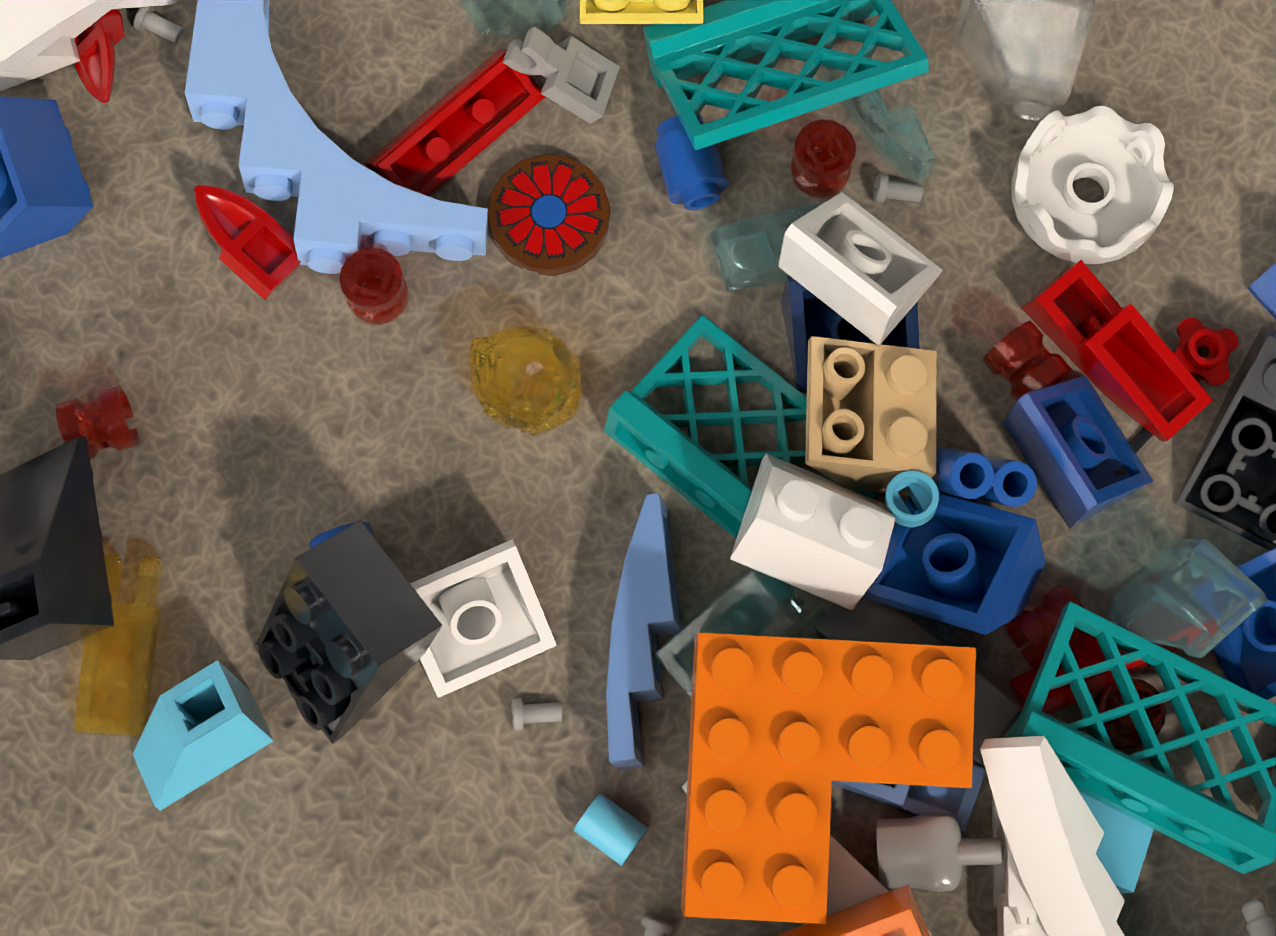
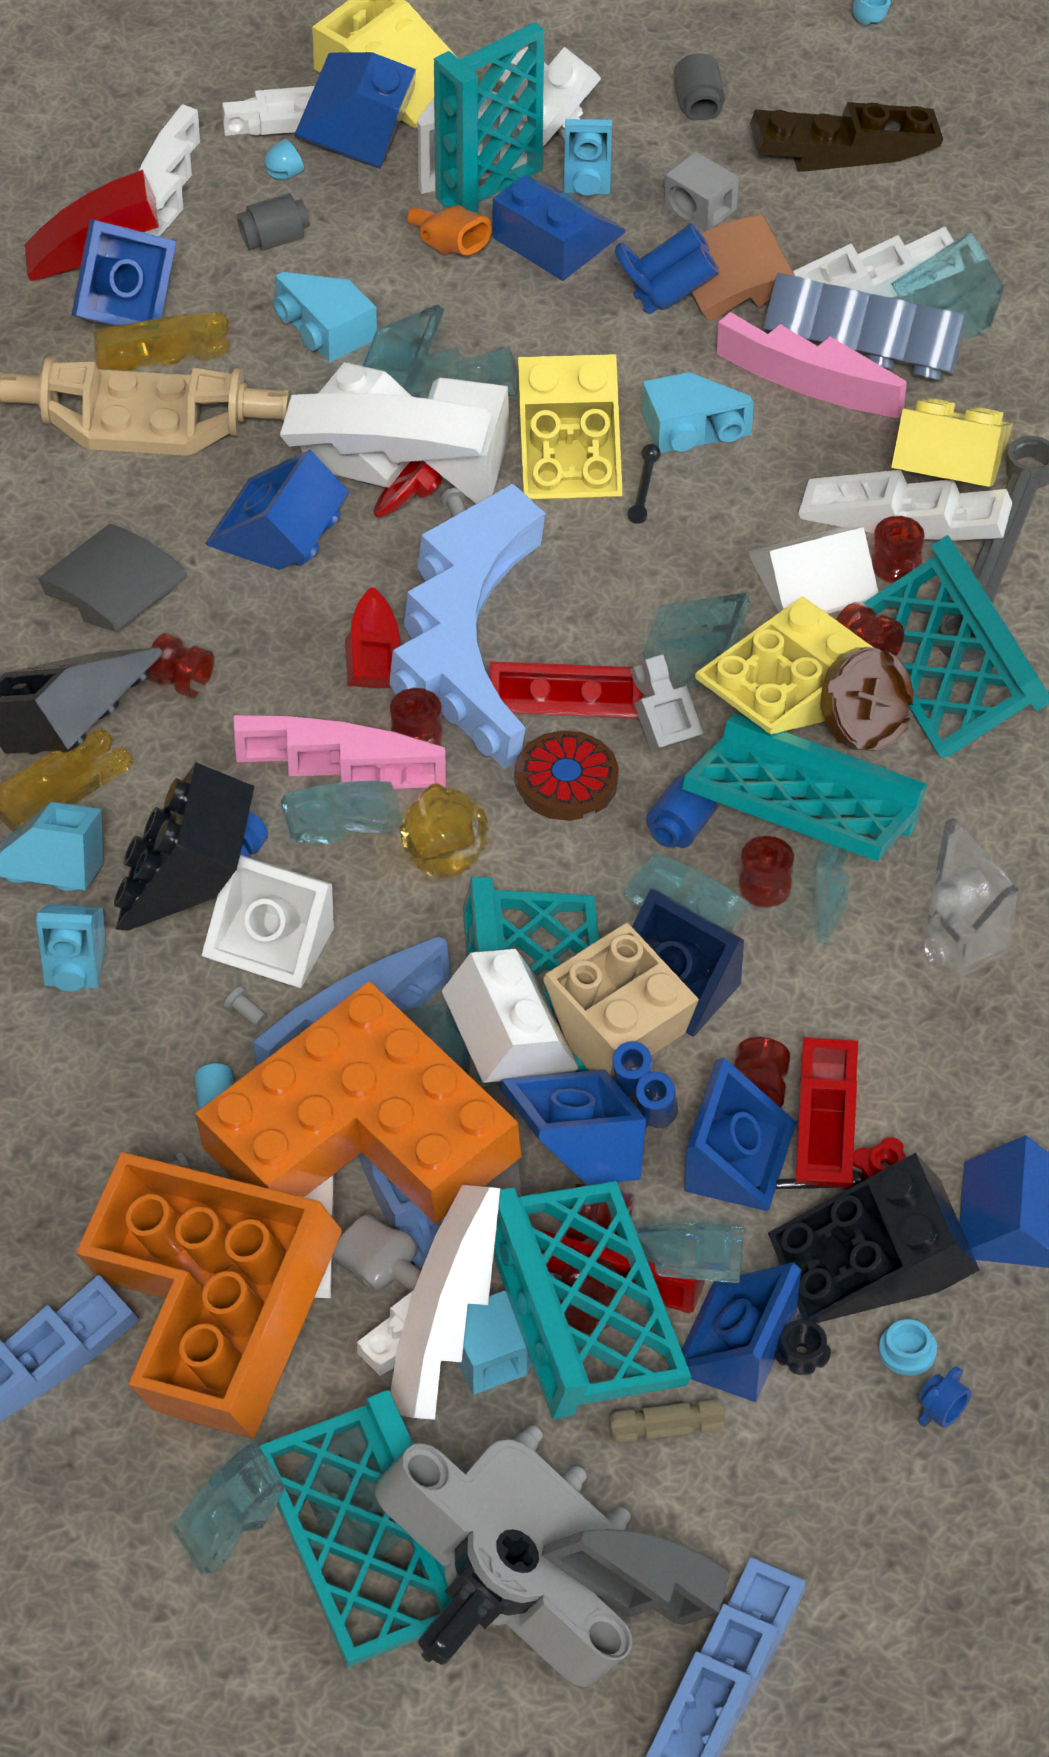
camera: 45 degrees right, 25 degrees down
(329, 813) = (71, 945): none -> medium azure slope
(361, 366) = (339, 749): none -> bright pink slope
(402, 437) = (330, 810): none -> clear light blue slope
(856, 265) = (696, 900): white slope -> none
(895, 190) = (798, 932): light grey piece -> none
(922, 493) = (575, 1051): medium azure hinge -> none
(1100, 147) = (923, 989): white plate -> none

